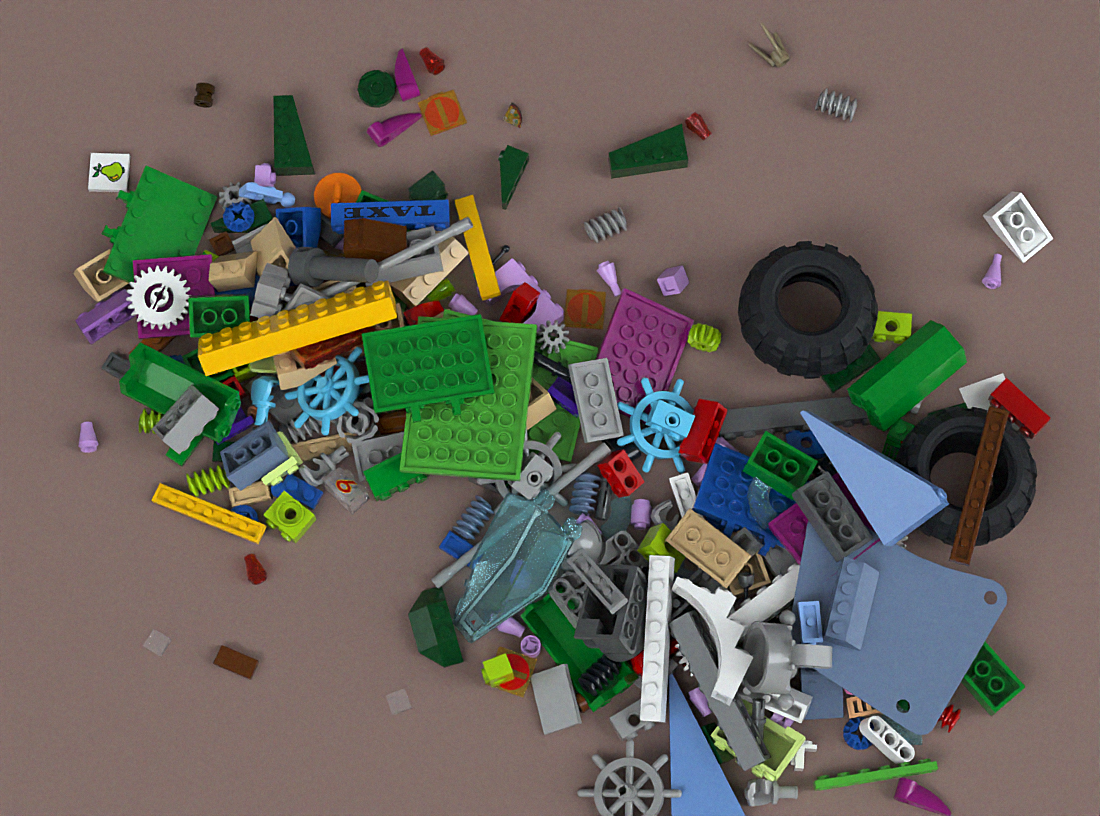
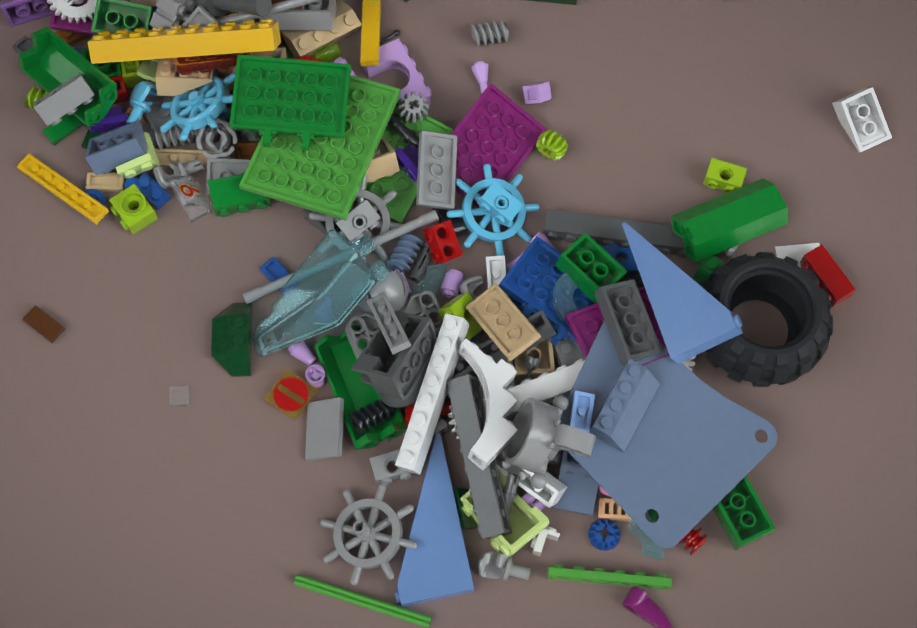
camera: 10 degrees right, 5 degrees down
(207, 481) = (69, 161): lime piece -> none
(255, 571) = (87, 249): clear red cone -> none
(473, 518) = (297, 249): sand blue piece -> none
(497, 670) = (275, 387): lime brick -> none
(520, 304) = (396, 73): red brick -> none
(581, 702) = (347, 439): reddish brown tile -> none
(585, 309) = (452, 98): piece -> none
(699, 701) = (458, 464): lavender cone -> none
(703, 431) = (528, 222): red brick -> none
(801, 351) = (647, 174): black tyre -> none
(856, 368) = (665, 209): dark green tile -> none
(877, 738) = (620, 543): white beam -> none
(979, 486) = (774, 325): reddish brown tile -> none
(993, 276) = (829, 156): lavender cone -> none

